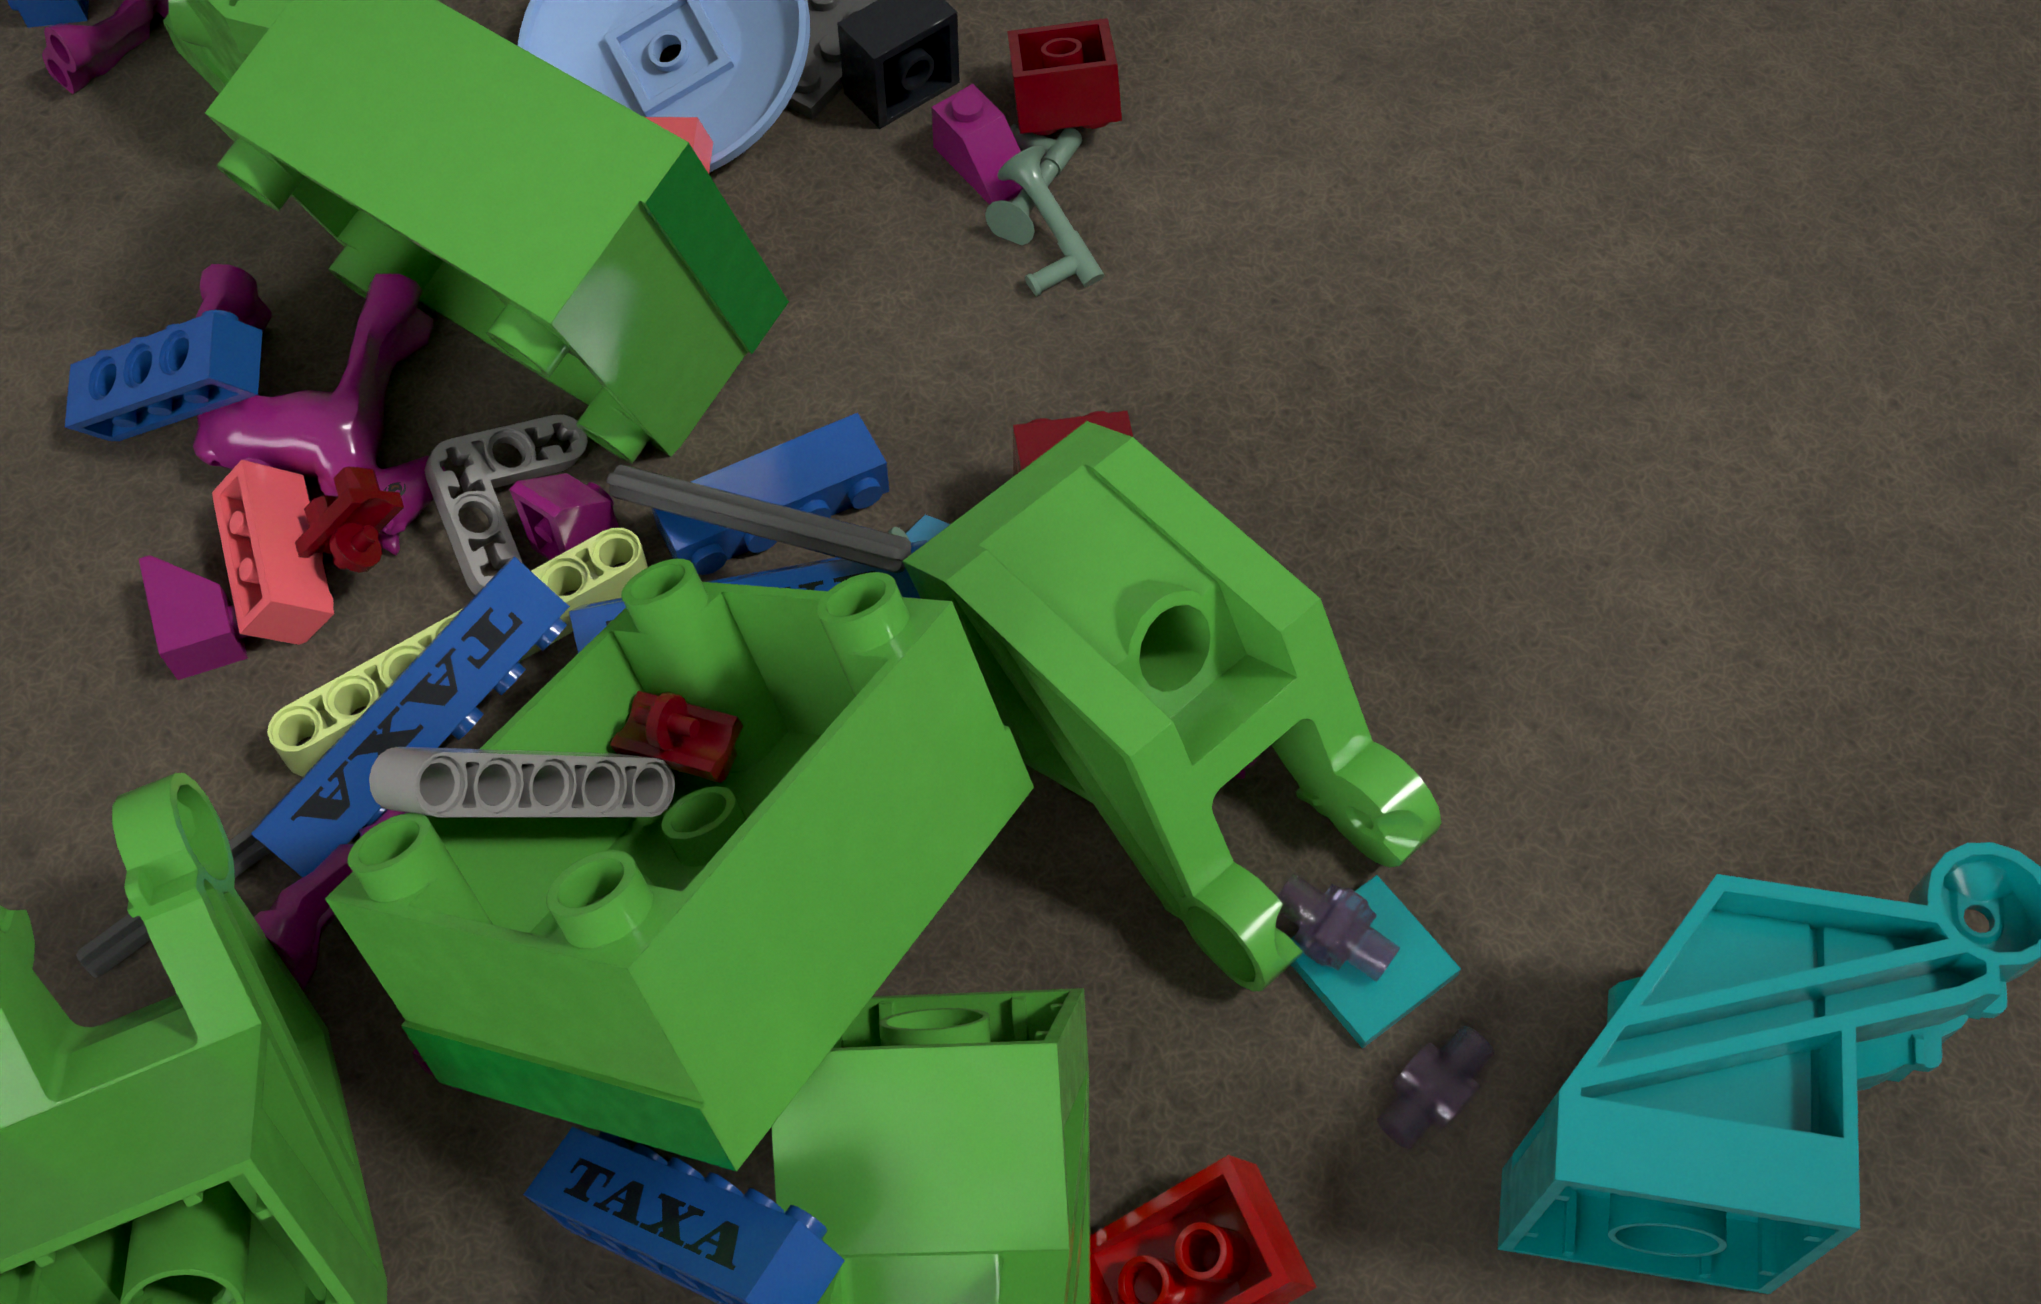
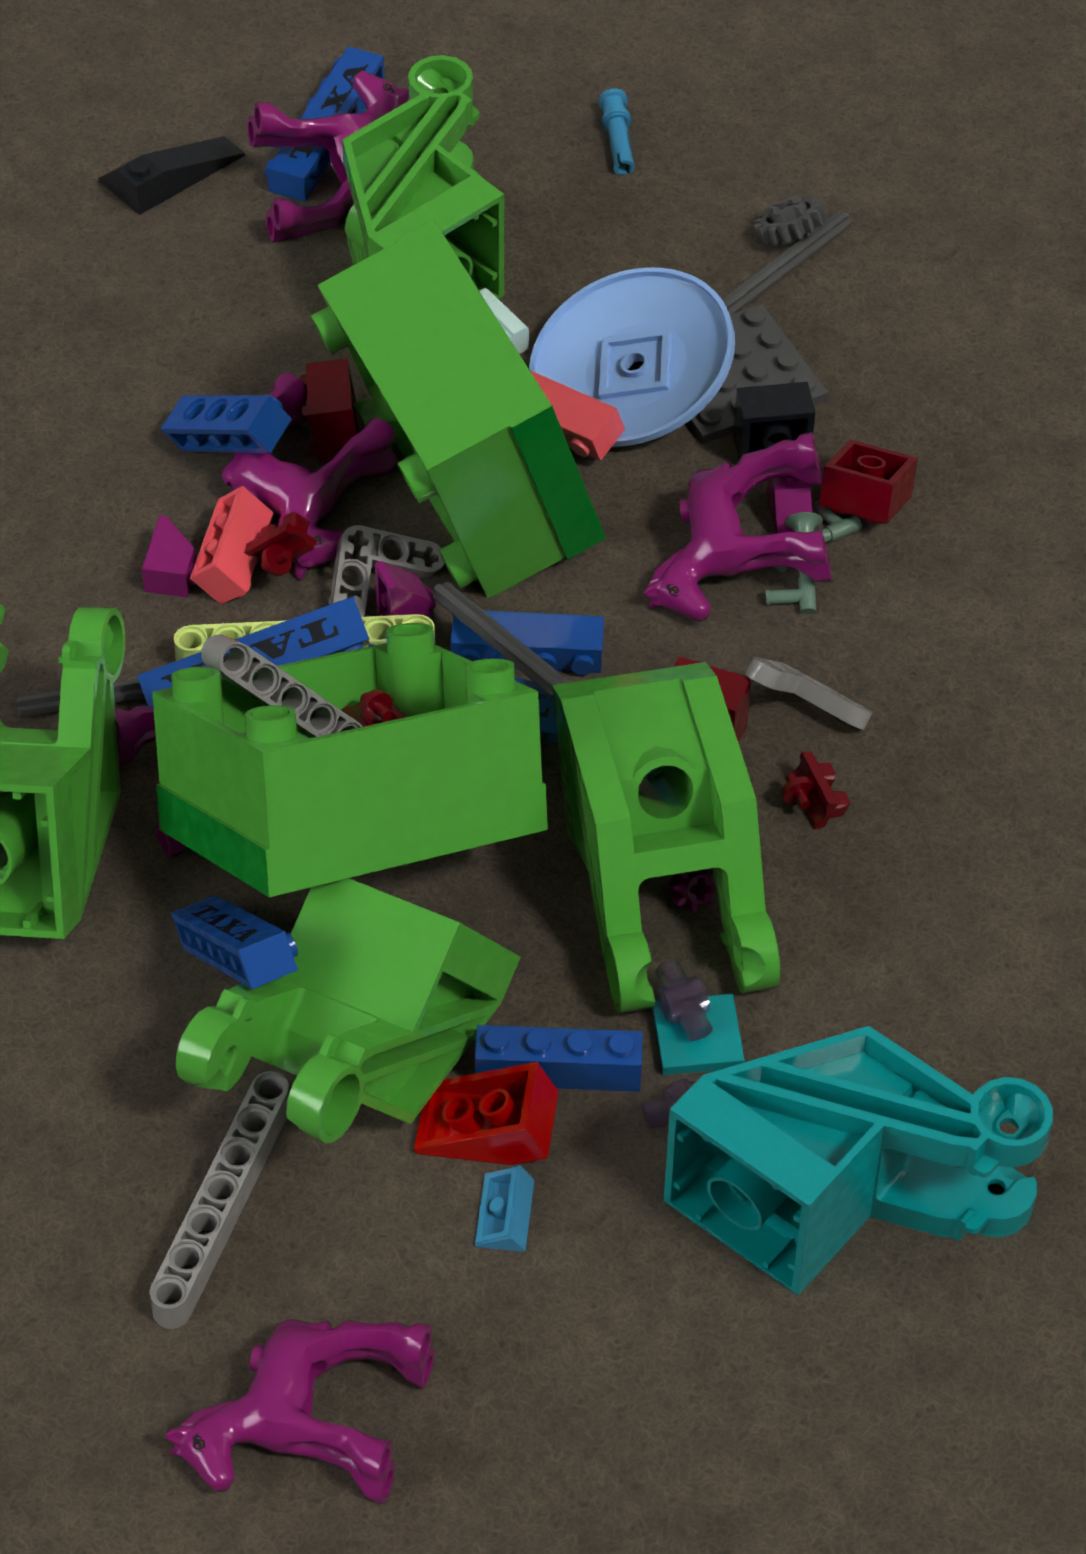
camera: 30 degrees right, 10 degrees down
(299, 288) = (330, 407): none -> dark red container
(931, 224) = (716, 532): none -> magenta animal
(1147, 387) = (788, 679): none -> light grey beam
(1226, 1112) = (568, 1056): none -> blue brick
(1277, 523) = (811, 789): none -> dark red hips

